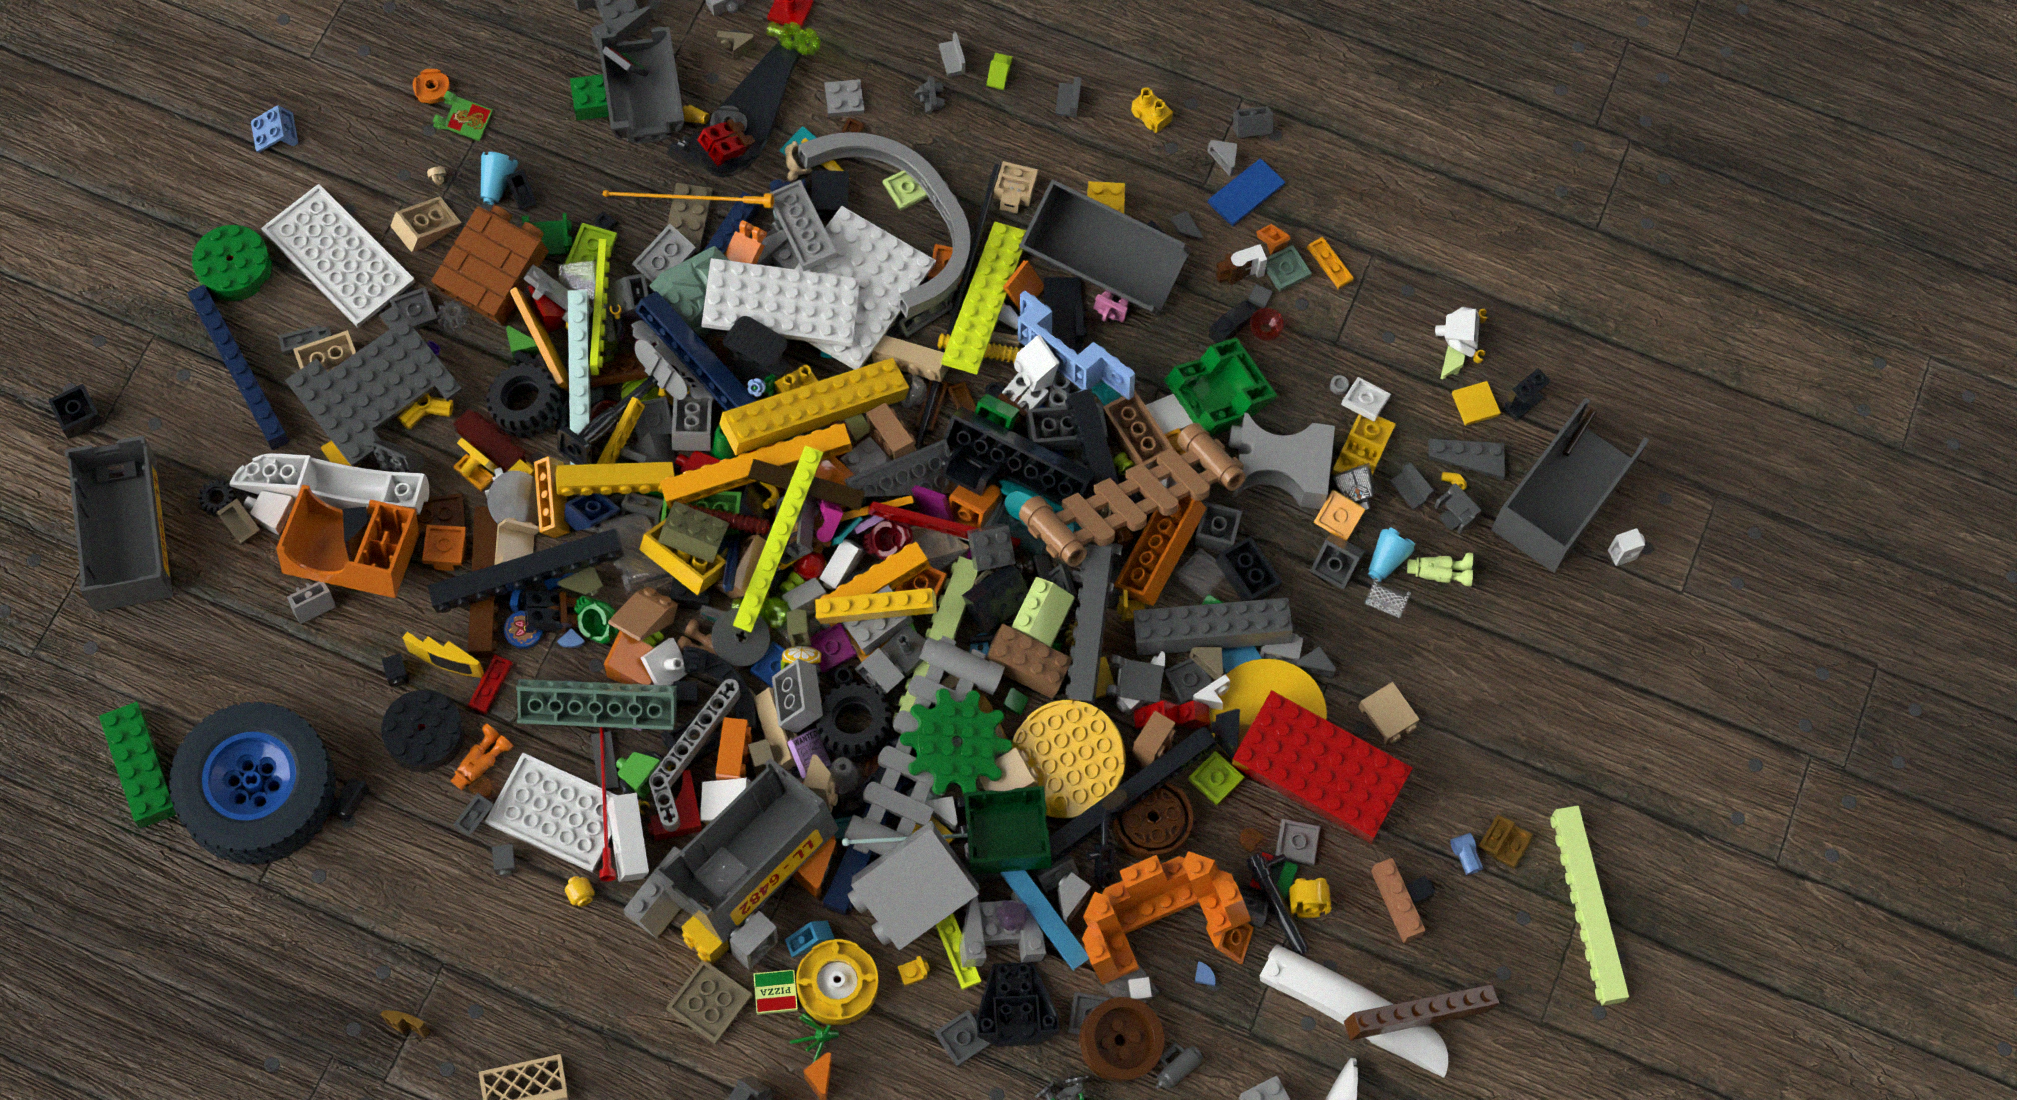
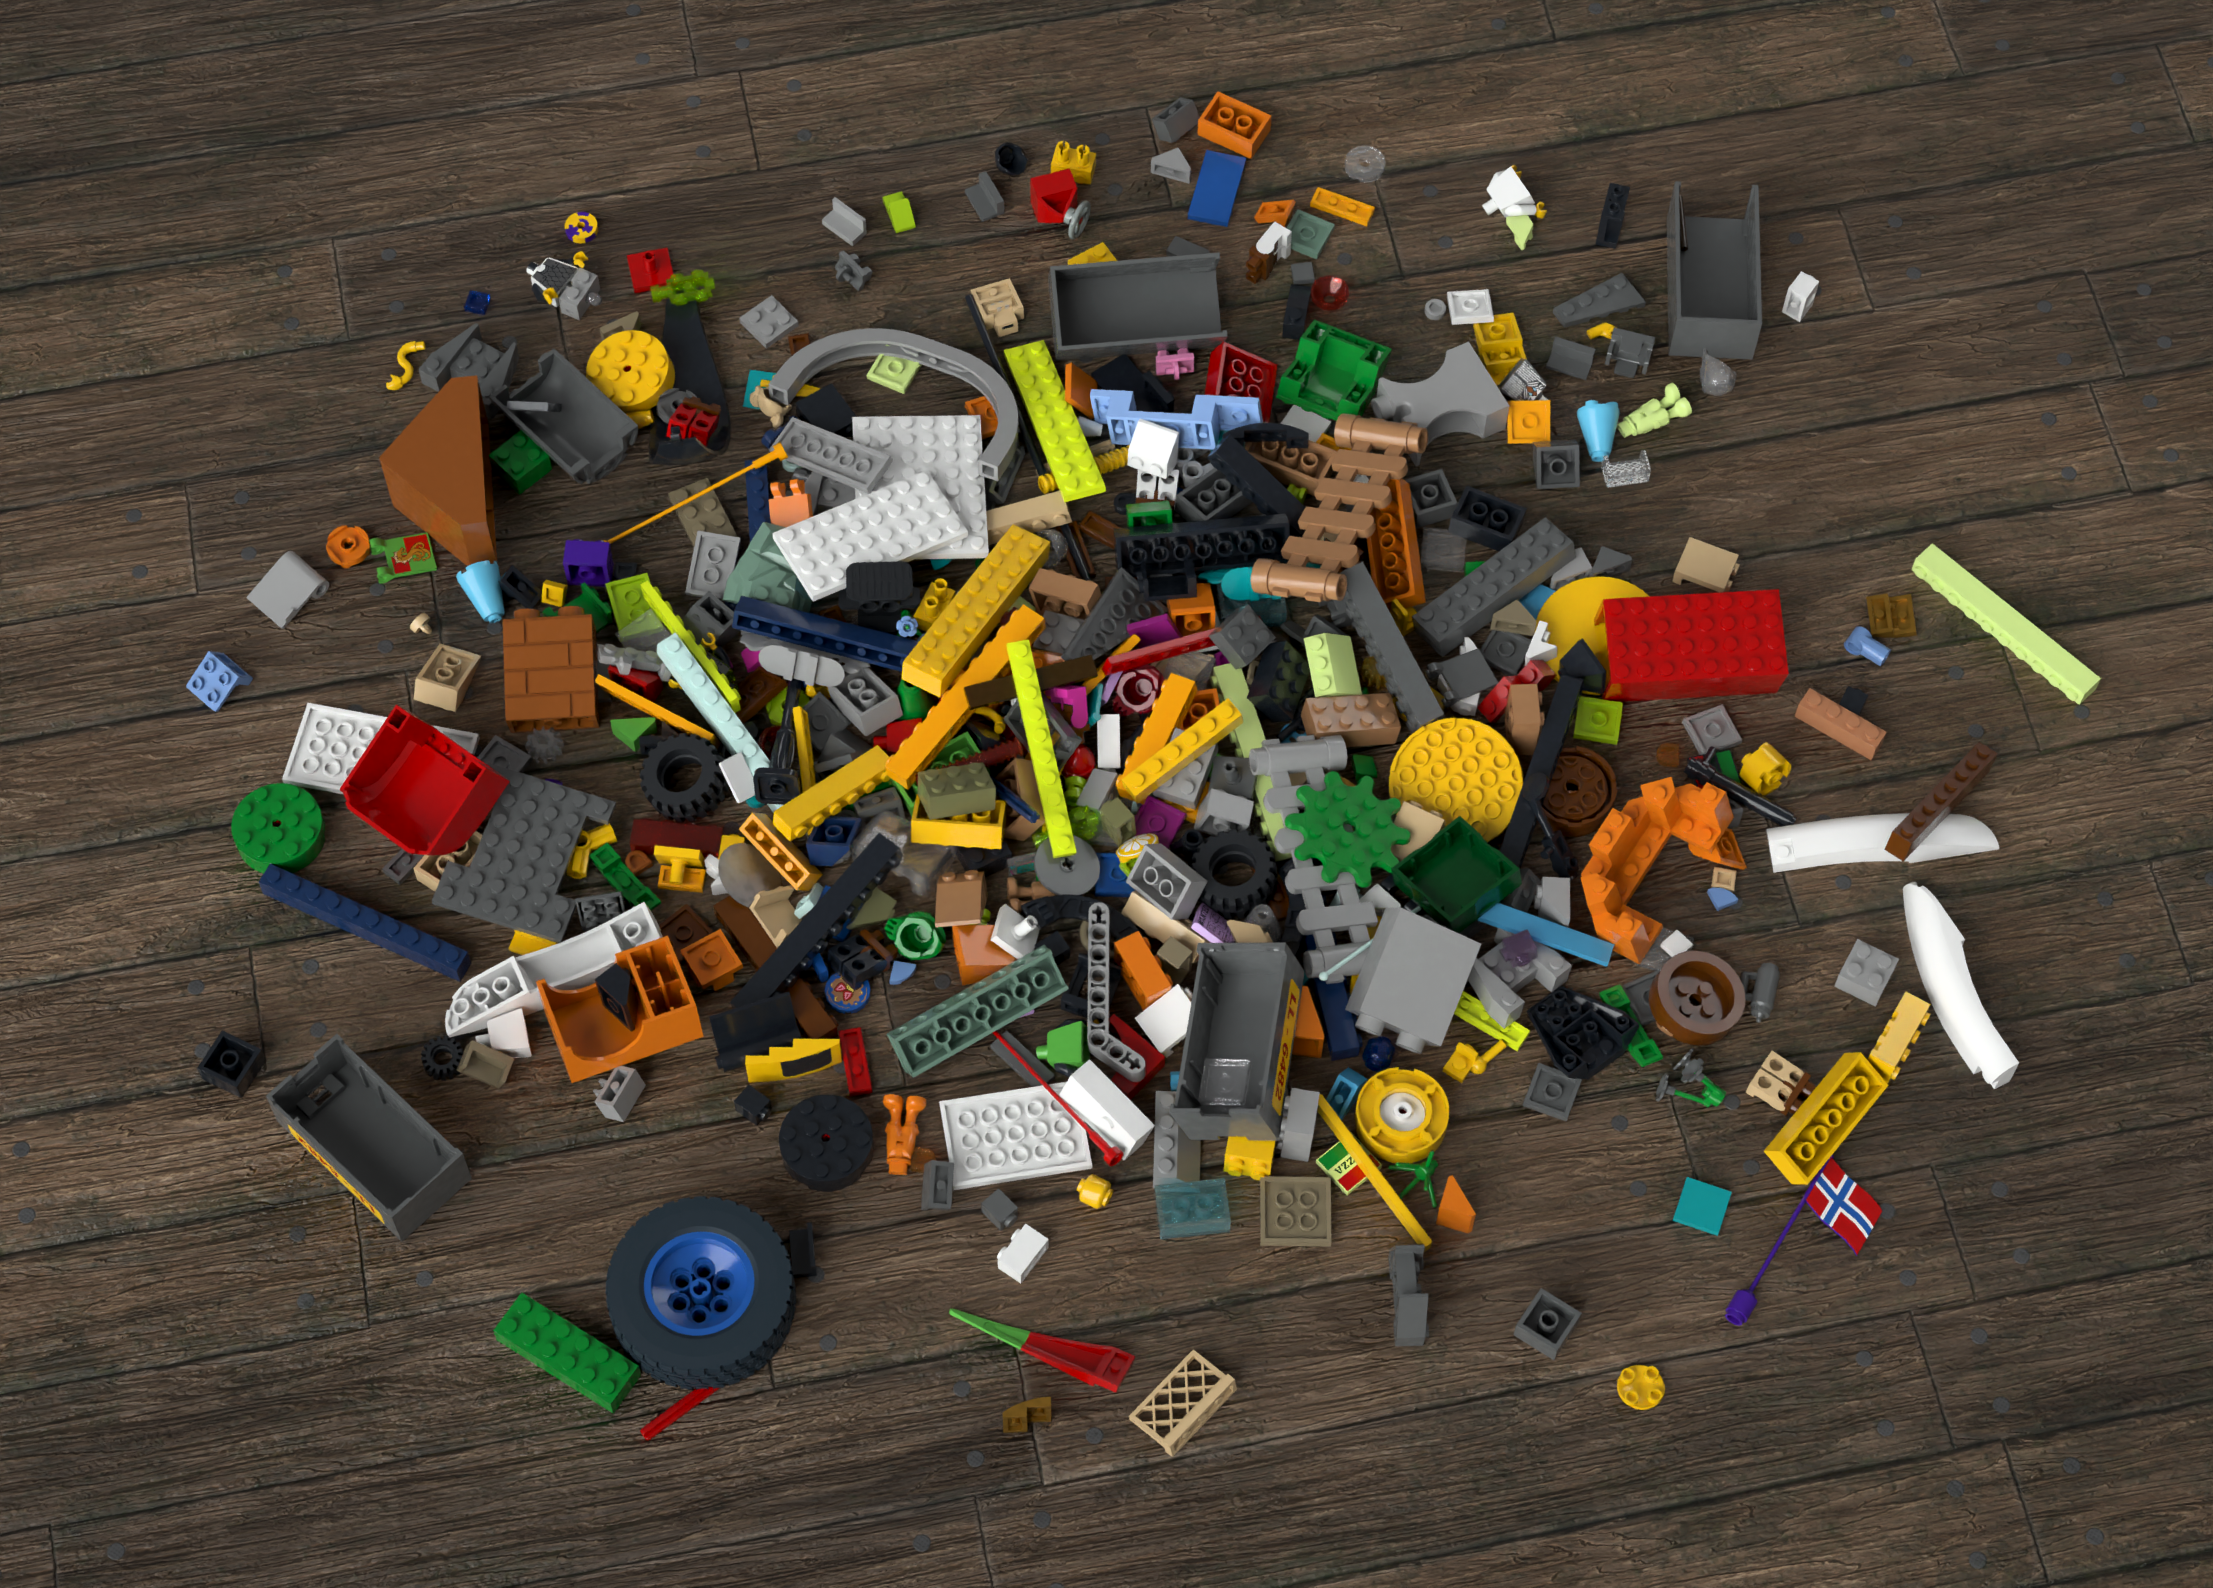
camera: 30 degrees left, 5 degrees down
(179, 856) = (675, 1412): none -> red axle
(335, 293) = (421, 787): none -> red slope
(368, 92) = (287, 588): none -> light grey door
(432, 617) = (753, 1030): none -> black door
(433, 447) = (621, 878): none -> green slope
(450, 441) = (637, 862): none -> dark orange tile
(477, 1011) = (1085, 1361): none -> red plate
(495, 902) = (1022, 1253): none -> white brick
(531, 72) = (443, 472): none -> dark orange slope
(543, 208) = (554, 593): none -> yellow tile
(545, 545) = (808, 901): none -> light aqua tile
(556, 419) = (738, 777): none -> white panel
(579, 200) = (588, 562): none -> dark purple brick
(635, 950) = (1192, 1208): none -> clear light blue brick
(713, 76) = (631, 370): none -> yellow piece
(782, 1012) = (1373, 1173): none -> yellow tile
(858, 924) = (1378, 1053): none -> clear blue head
(927, 982) = (1480, 1064): none -> yellow bar
(1055, 1046) = (1641, 1047): none -> green slope
(1108, 79) = (1010, 159): none -> black hair
(1116, 133) = (1056, 201): none -> red piece
(1126, 400) = (1270, 433): none -> black slope
(1149, 353) = (1241, 375): none -> red slope
(1217, 962) = (1723, 878): none -> tan tile
(1293, 151) = (1234, 125): none -> orange brick
(1372, 230) = (1365, 154): none -> clear tile
(1476, 403) = (1569, 253): yellow tile -> none
(1509, 568) = (1716, 376): none -> clear helmet

